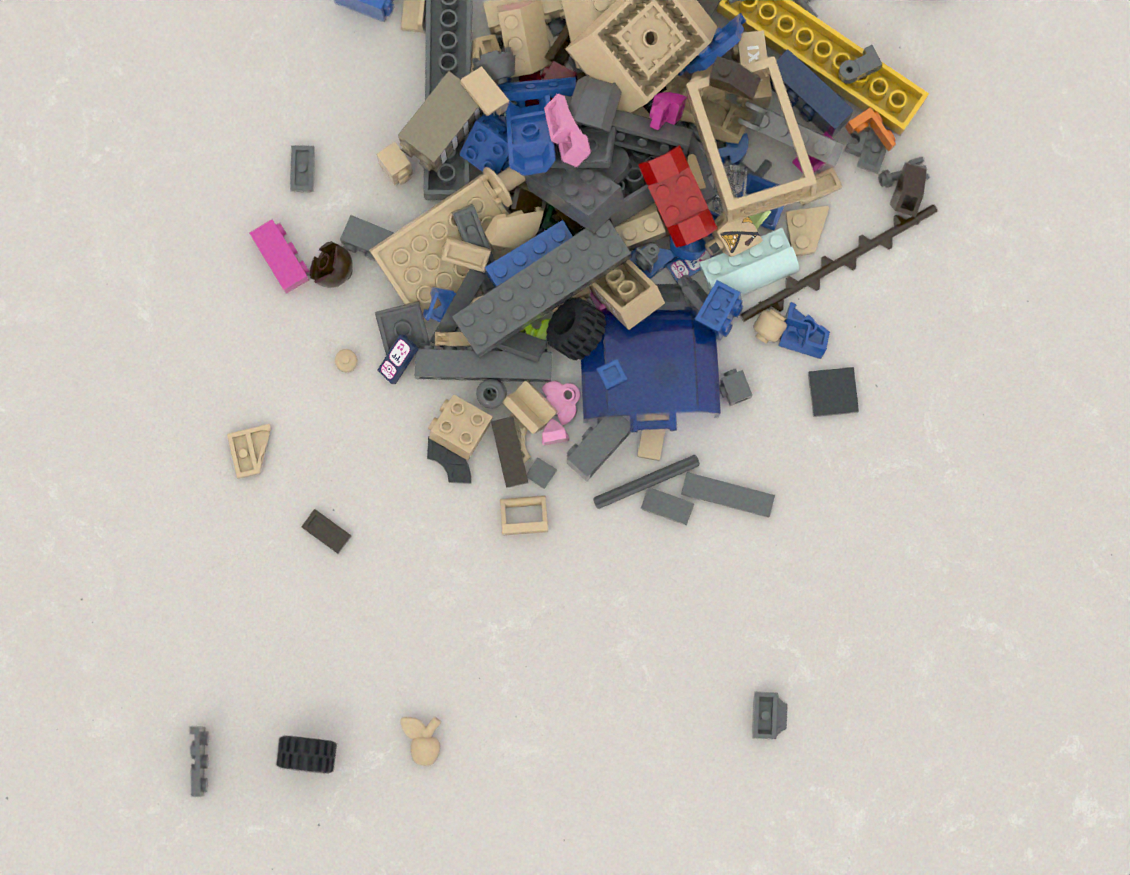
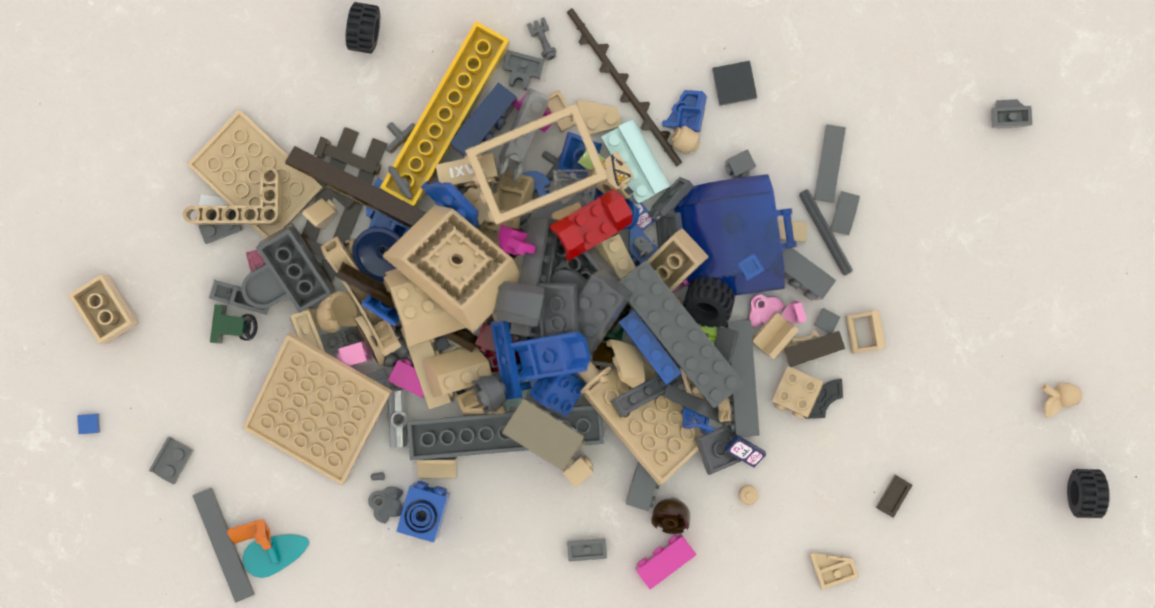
camera: 95 degrees left, 5 degrees up
(197, 751) = (1081, 584): dark grey wing -> none
(465, 254) = (654, 402): tan tile -> none
(483, 393) = (767, 369): dark grey head -> none
(485, 92) = (517, 399): tan panel -> none
(565, 132) = (550, 325): bright pink slope -> none
(720, 309) = (679, 183): blue bracket -> none
(733, 78) = (490, 182): dark brown slope -> none
(861, 67) = (463, 85): dark grey leg -> none
(872, 117) = (506, 76): orange bracket -> none
(909, 190) = (559, 32): dark brown slope -> none

